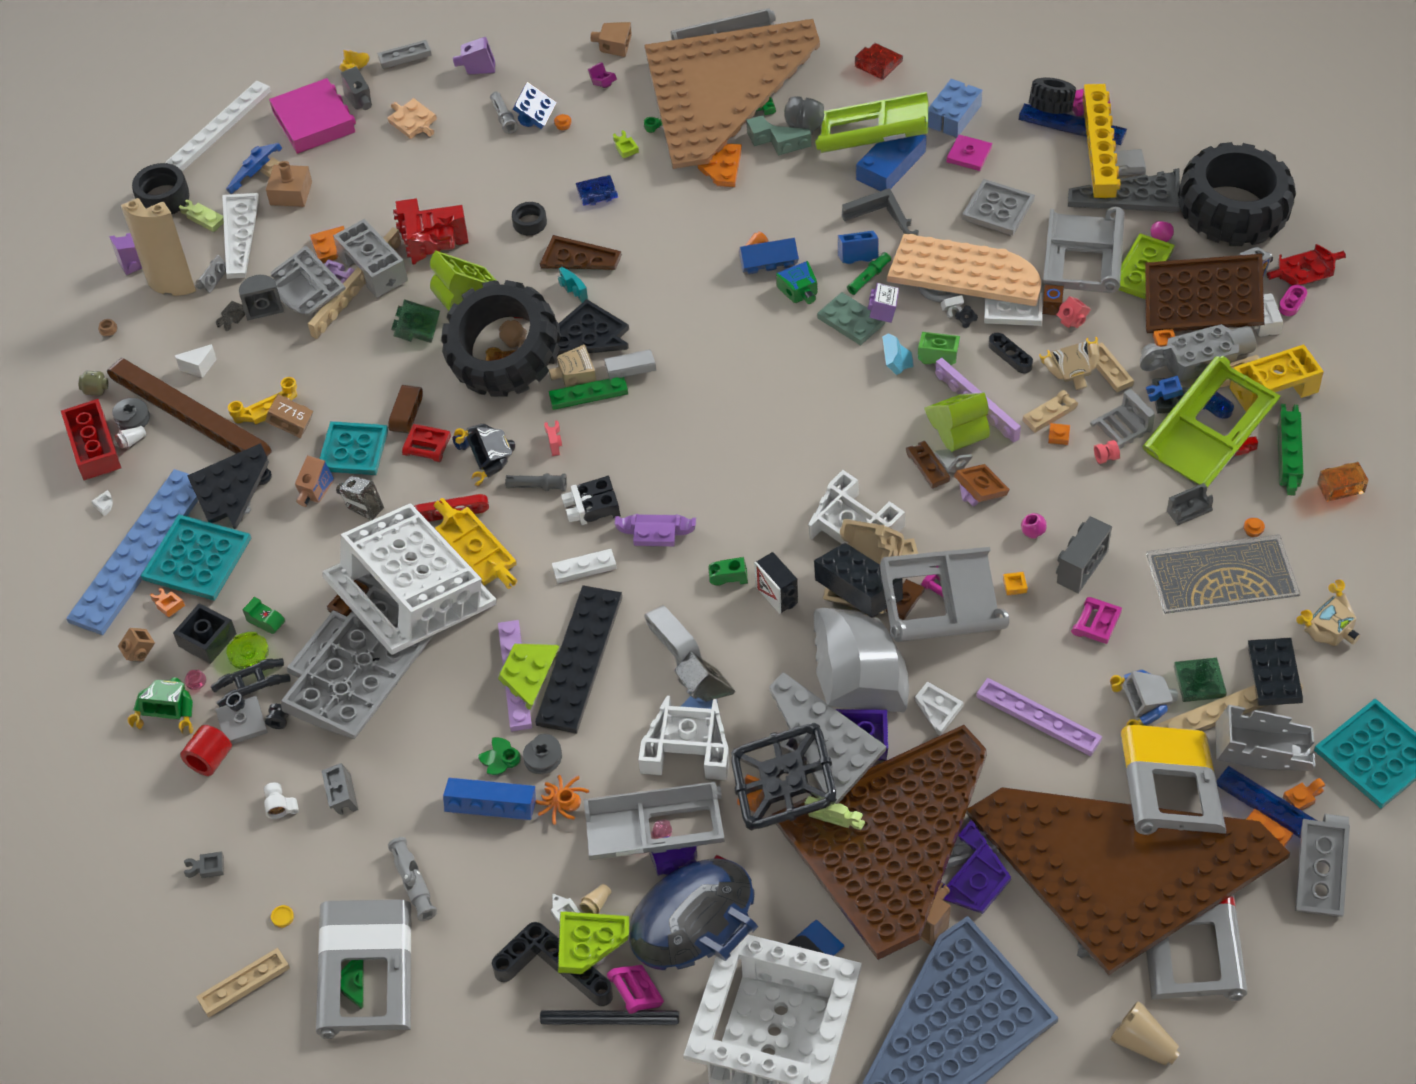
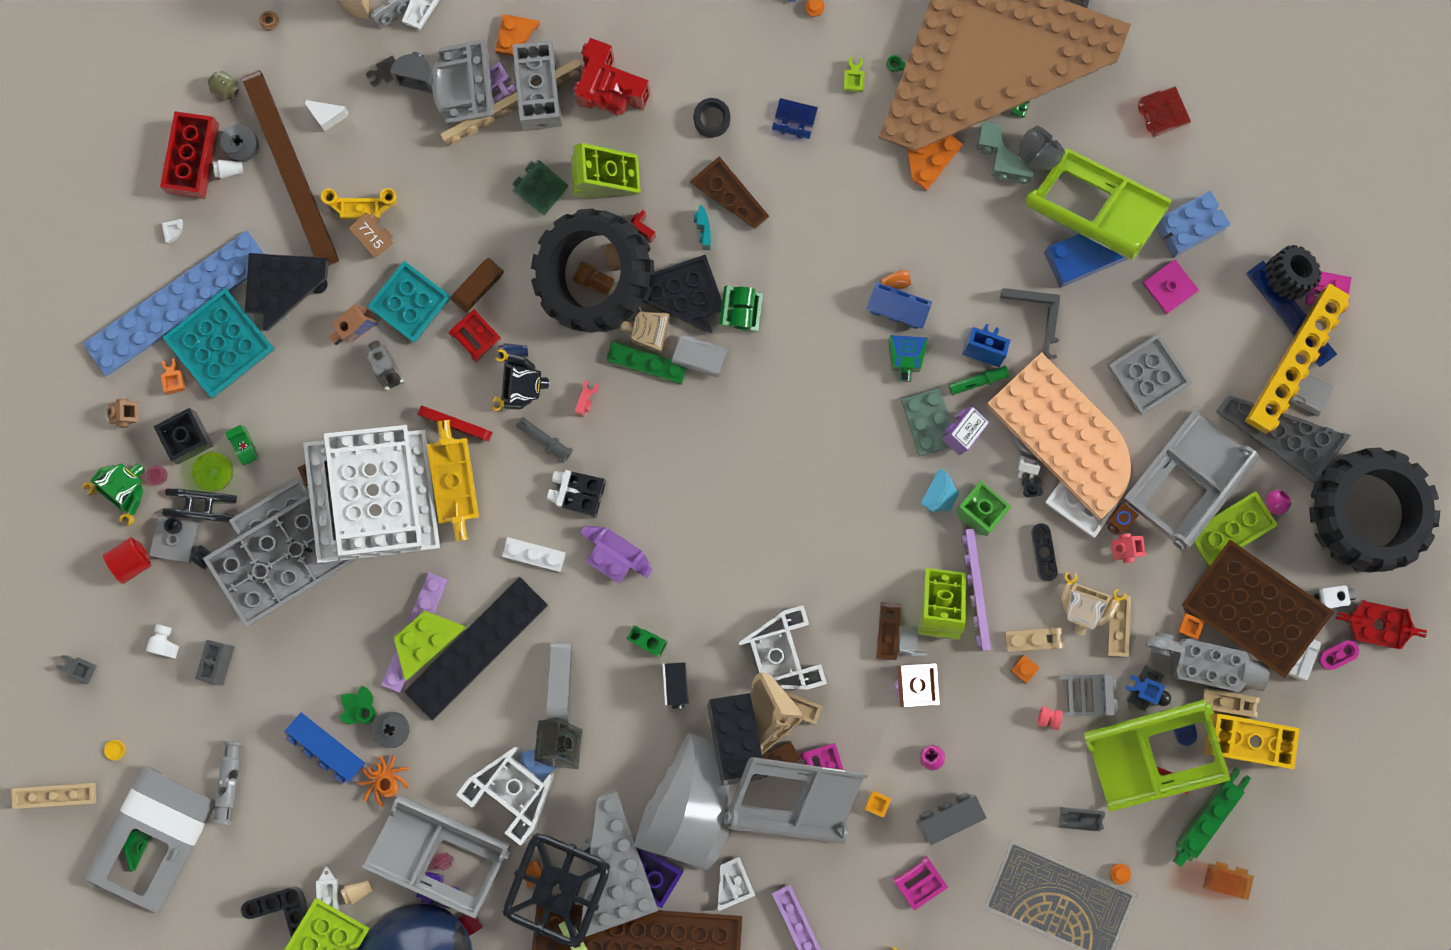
camera: 30 degrees right, 30 degrees up
(641, 315) = (741, 308): none -> green plate

